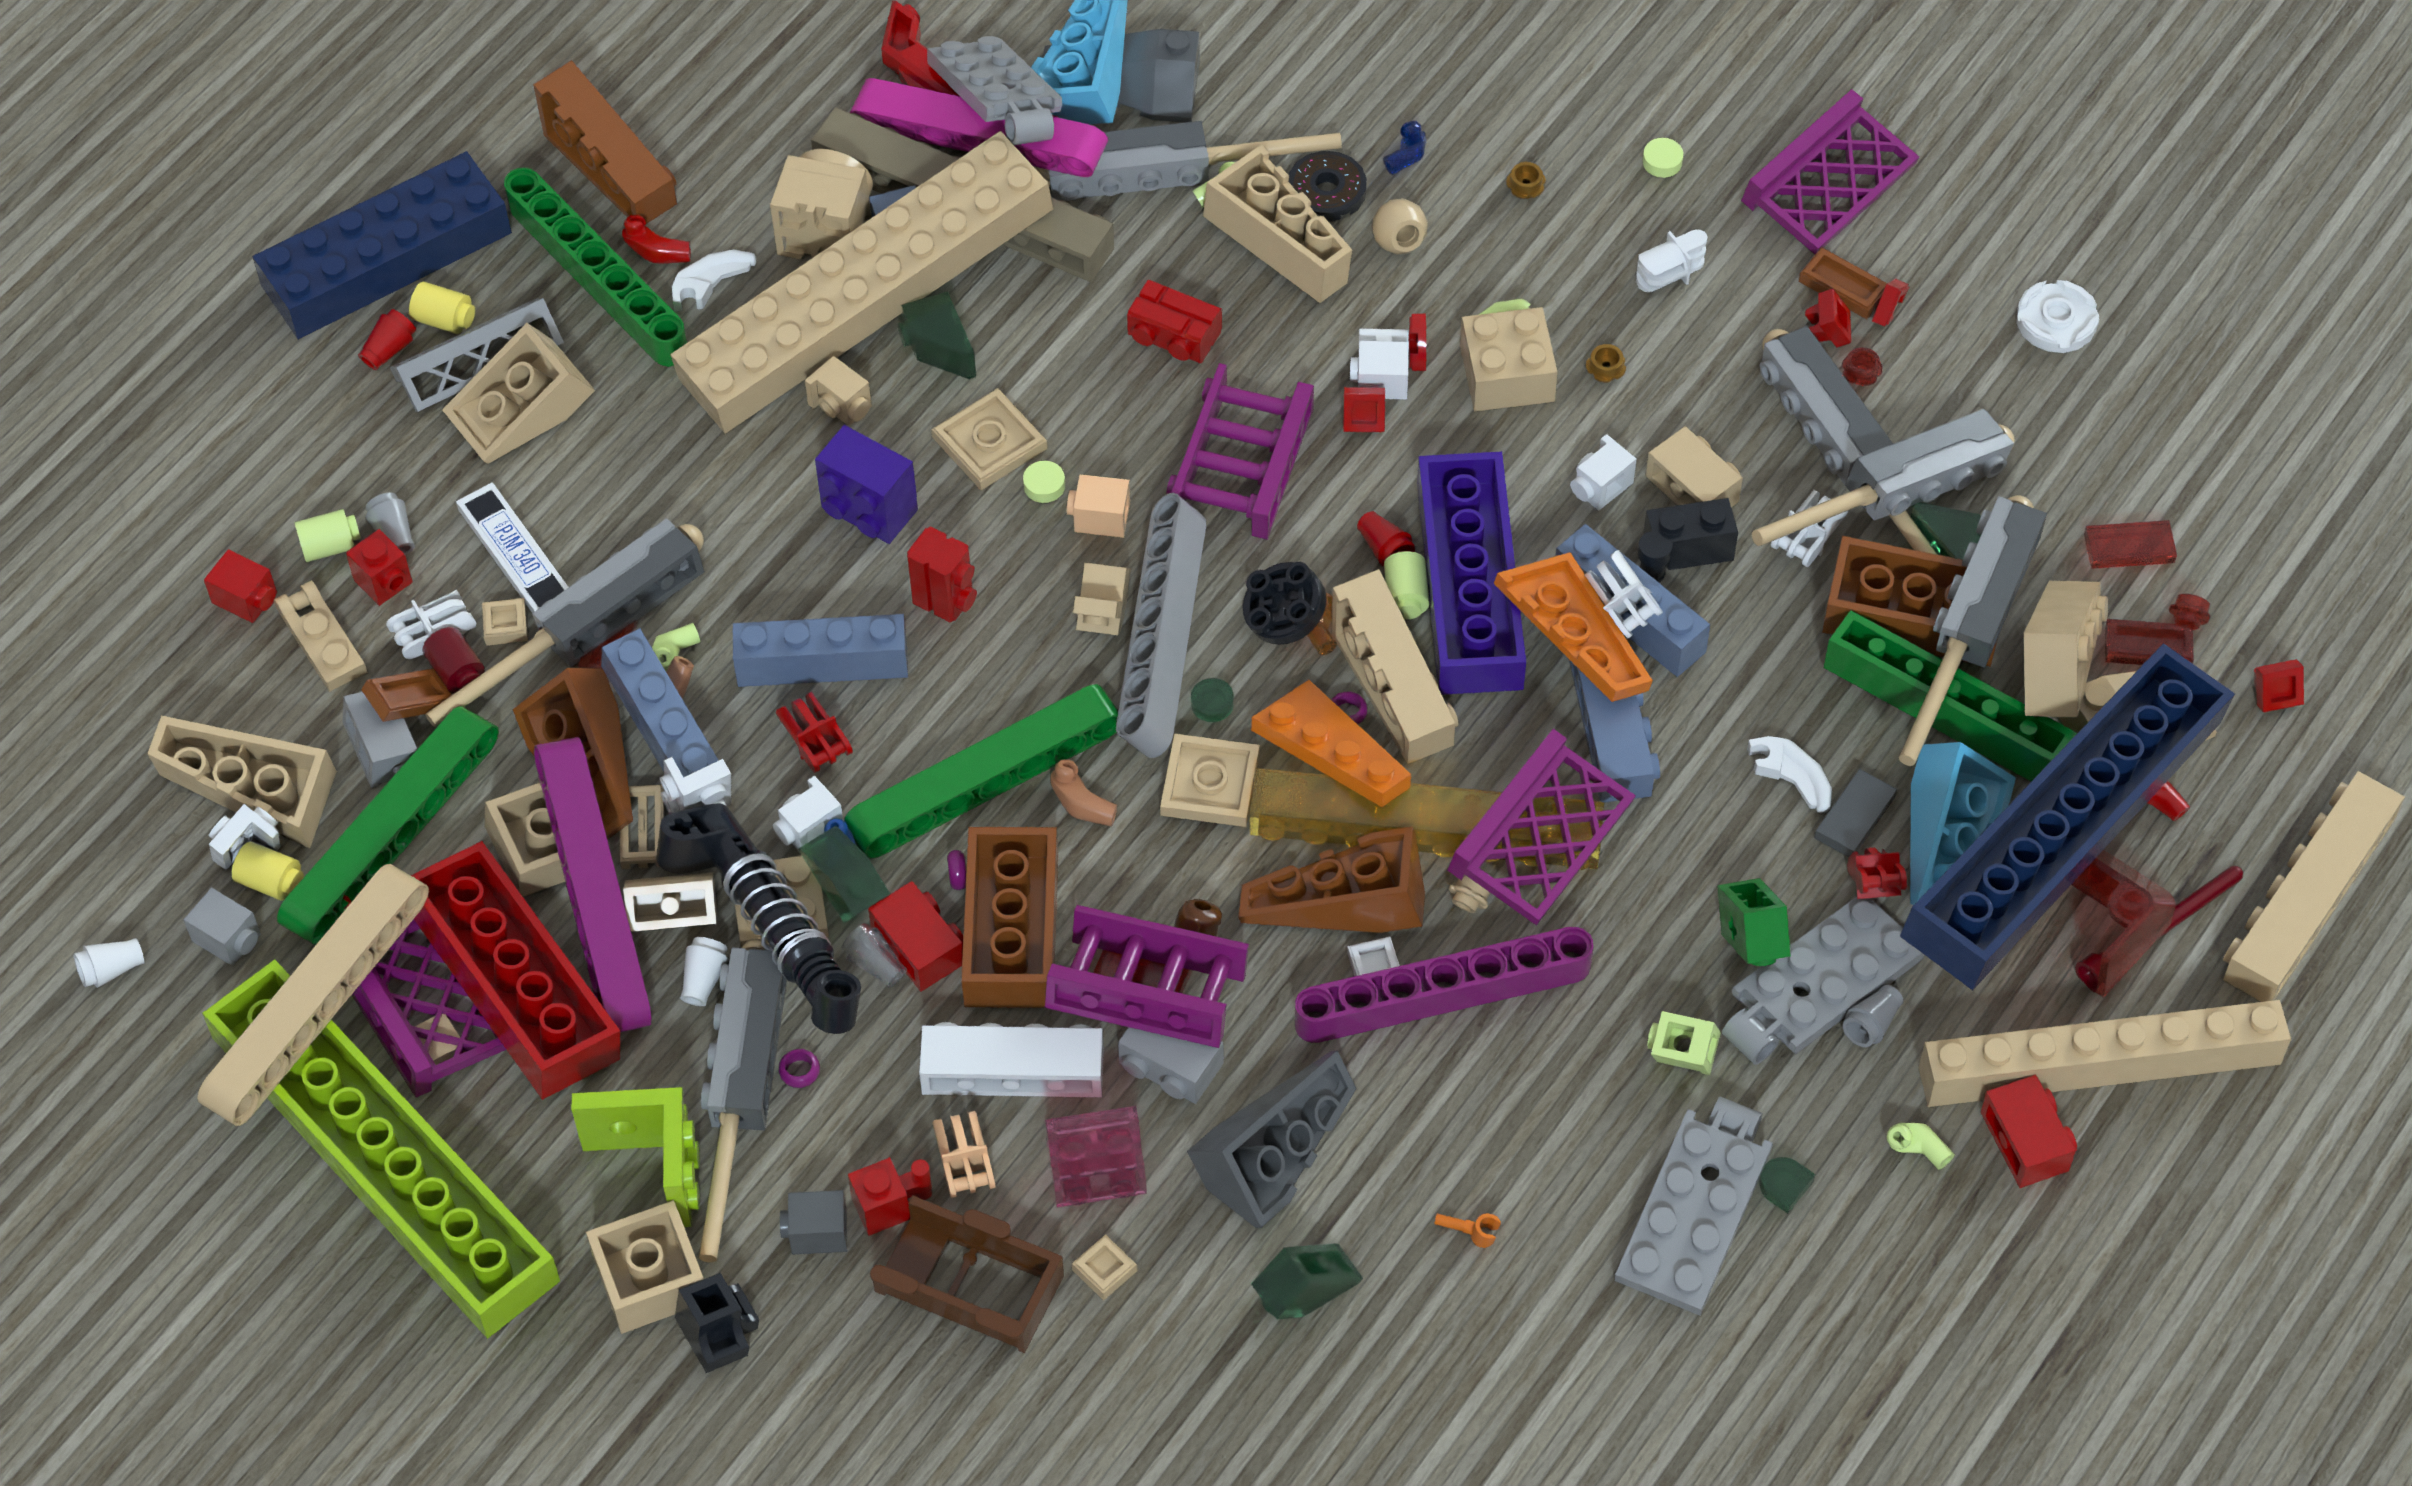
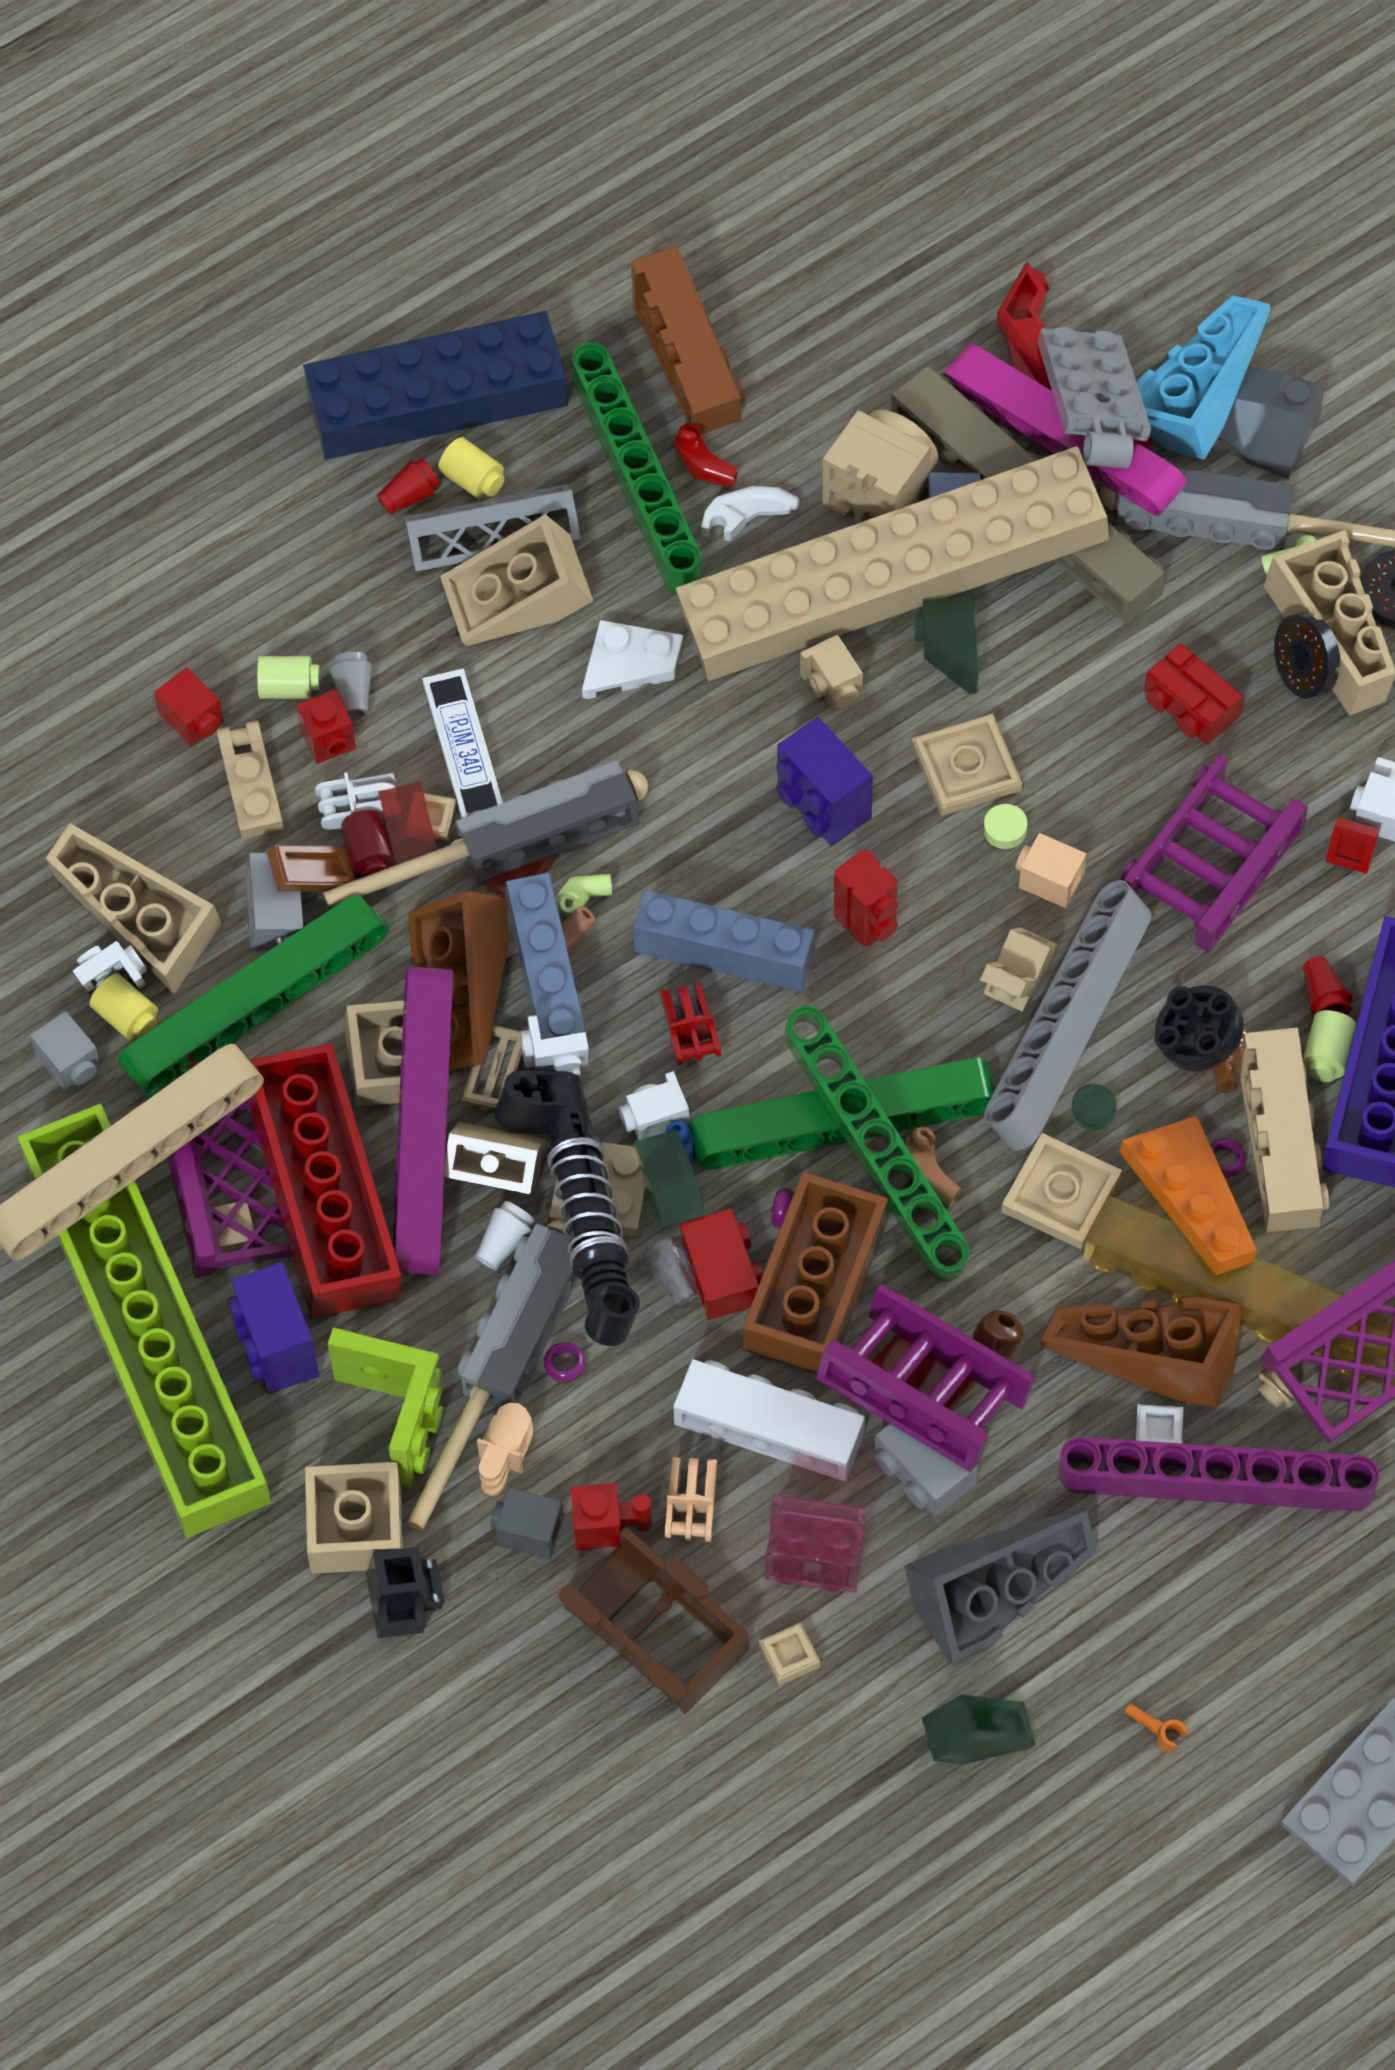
camera: 20 degrees right, 5 degrees up
(485, 627) = (407, 821): none -> clear red tile
(511, 1116) = (272, 1329): none -> dark purple brick
(646, 431) = (630, 657): none -> white wing
(769, 1160) = (504, 1446): none -> light nougat arm
(1021, 763) = (875, 1121): none -> green beam
(1249, 264) = (1292, 640): none -> tile

